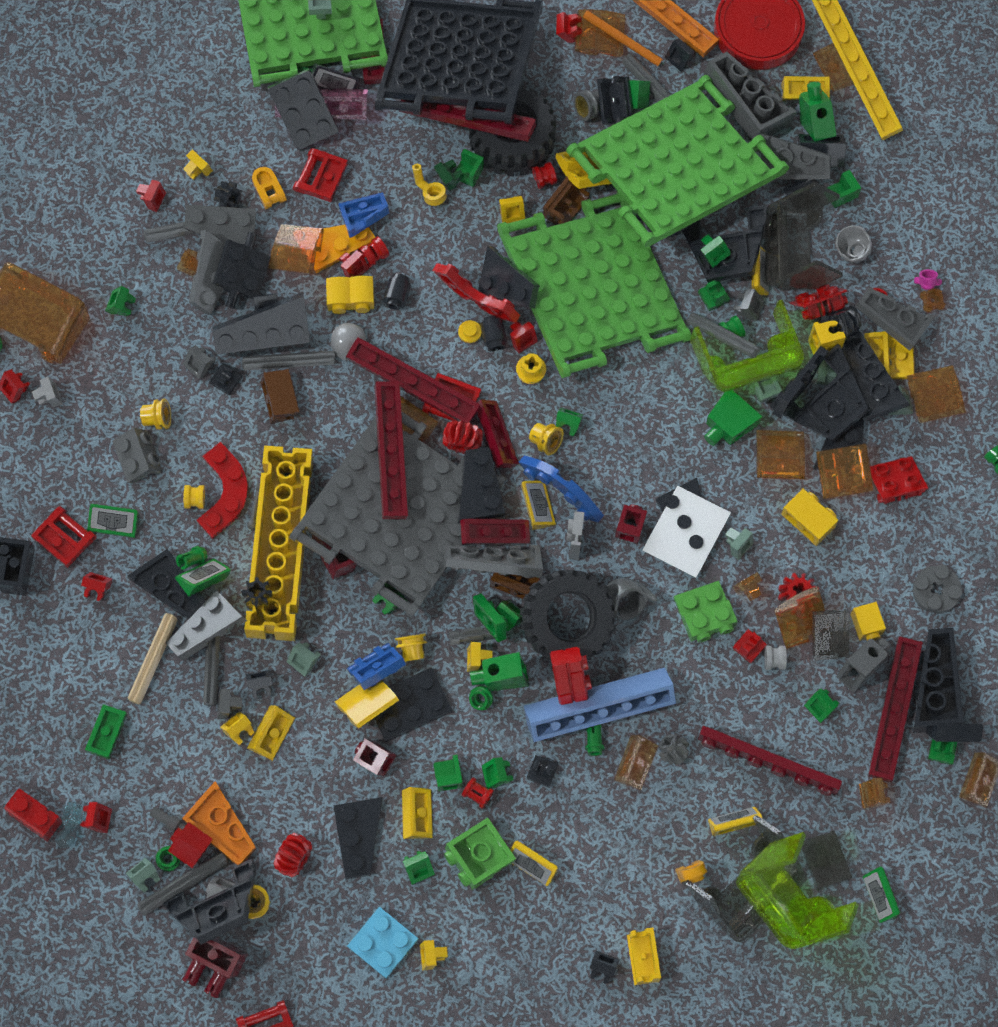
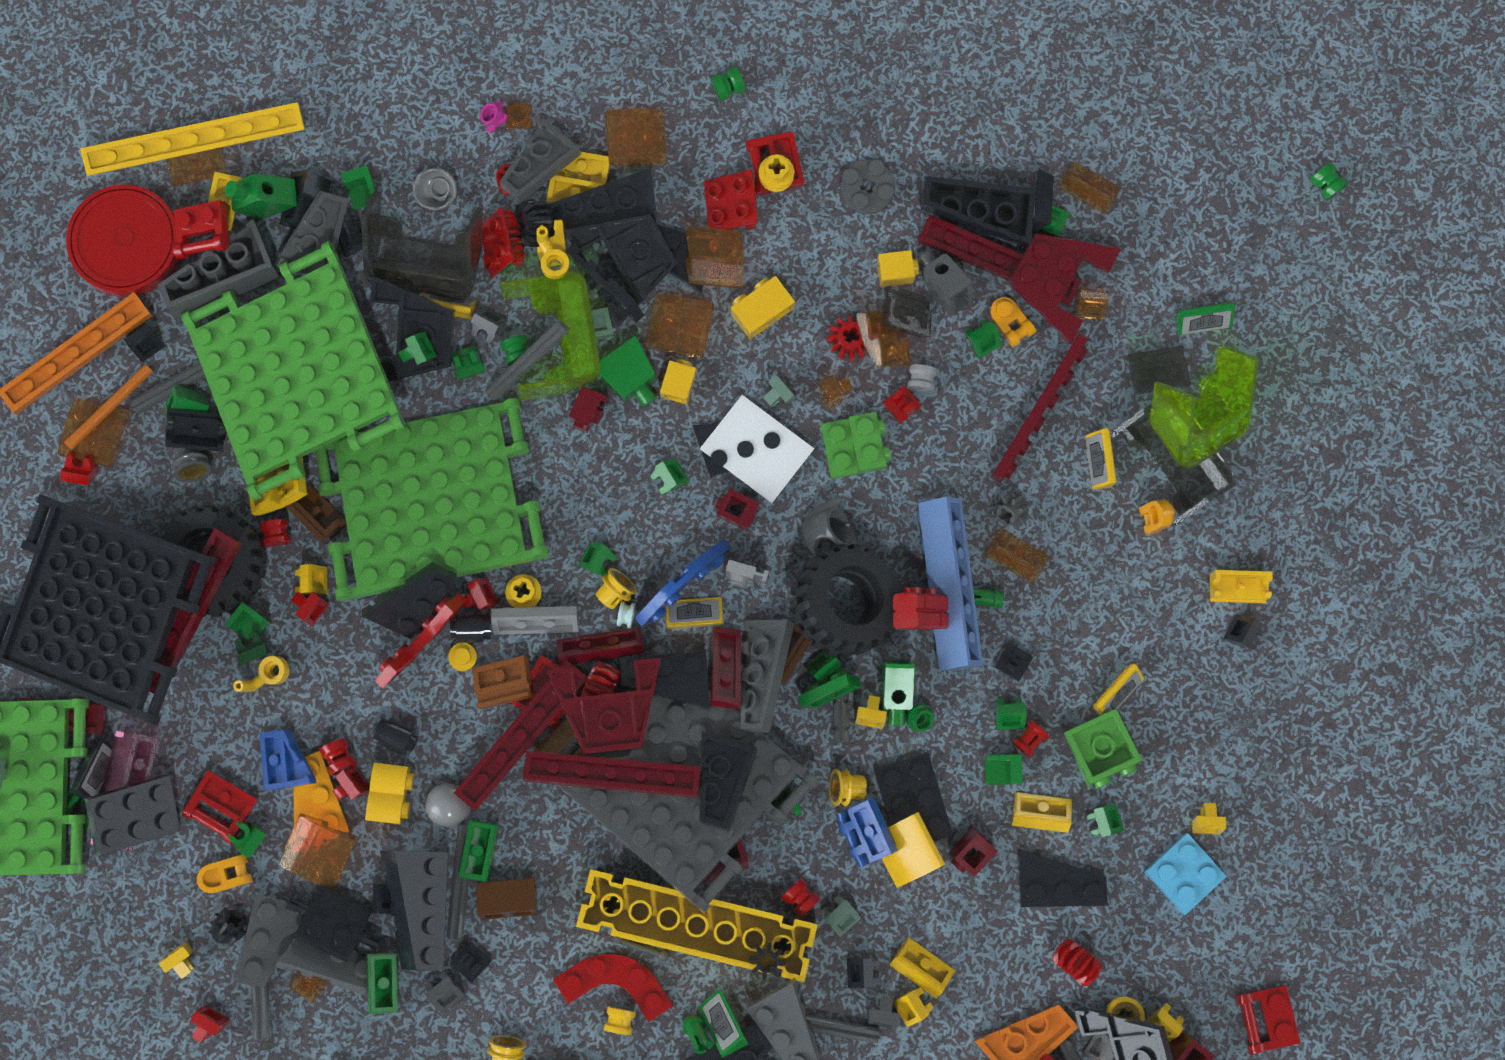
camera: 80 degrees left, 10 degrees up
(199, 313) = (382, 983): none -> green slope
(248, 939) = (1172, 1026): none -> yellow tile
(297, 198) = (249, 839): none -> green tile
(314, 369) = (479, 851): none -> green slope
(314, 623) = (800, 897): none -> red wheel
(402, 537) = (724, 777): none -> black wing
(435, 442) = (612, 719): none -> dark red wing
(453, 363) = (502, 682): none -> dark orange plate
(489, 211) = (310, 608): none -> red tile
(509, 380) = (535, 620): none -> light grey plate
(526, 448) = (626, 614): none -> light aqua bush
(650, 467) = (671, 474): none -> green tile
(692, 392) = (587, 409): none -> dark red brick
(731, 459) = (678, 381): none -> yellow brick
(784, 70) = (198, 221): none -> red plate
(811, 331) = (551, 255): none -> yellow plate
(849, 721) = (1005, 312): none -> light orange plate
(894, 749) = (1048, 271): none -> dark red wing
(925, 513) = (772, 181): none -> yellow piece
(942, 516) = (780, 144): none -> red plate

